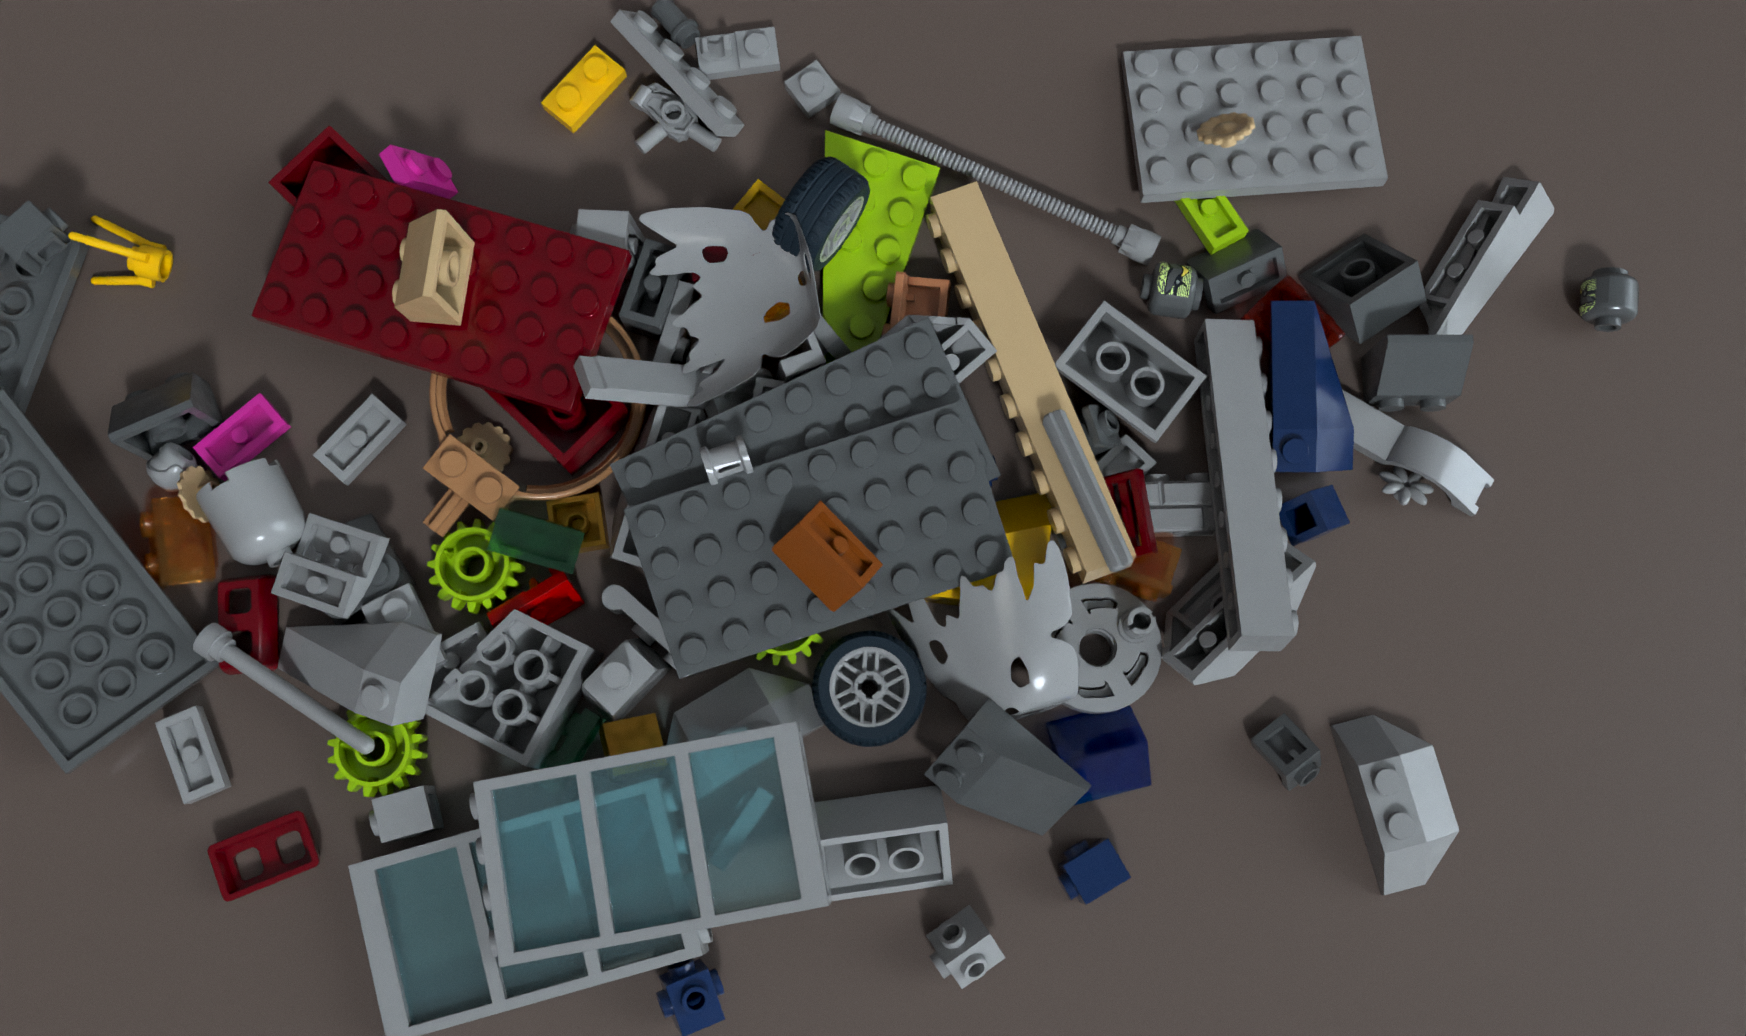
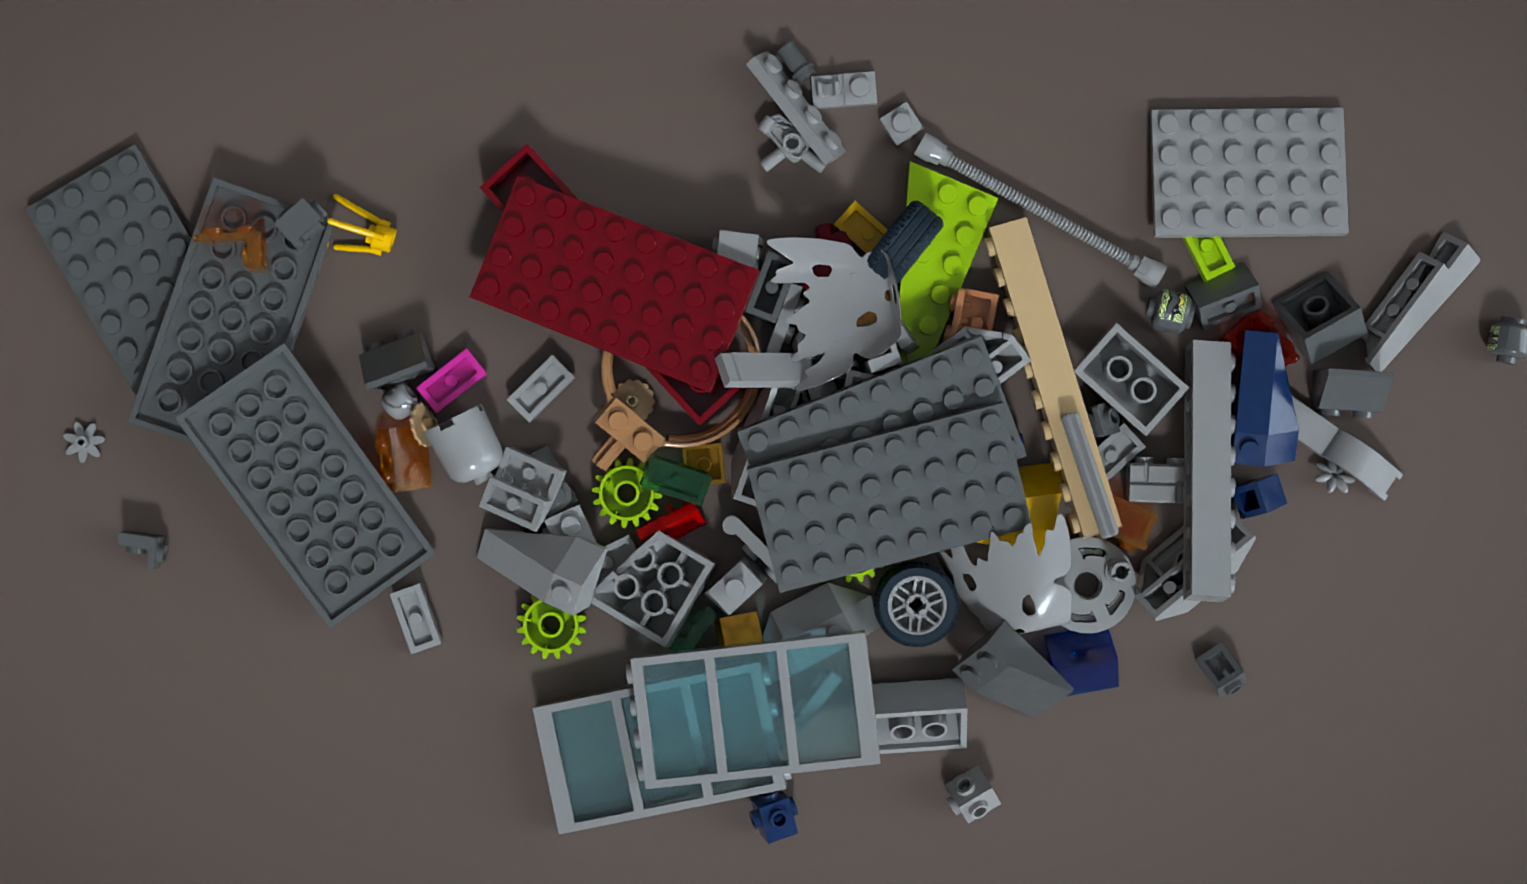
camera: 10 degrees right, 10 degrees up
(217, 644) = (438, 542): light grey piece -> none
(260, 620) = (465, 523): dark red piece -> none
(264, 839) = (474, 705): dark red piece -> none
(406, 814) = (571, 672): light grey brick -> none
(418, 171) = (593, 183): dark pink plate -> none
(434, 270) = (614, 282): tan slope -> none
(584, 89) = (720, 113): yellow plate -> none
(726, 460) = (825, 438): light grey bush -> none
(827, 557) = (895, 515): dark orange panel -> none
(1091, 870) = (1068, 746): dark blue brick -> none
(1142, 509) = (1130, 485): dark red tile -> none
(1226, 129) = (1224, 189): tan piece -> none
(1396, 800) = (1298, 709): light grey wedge -> none

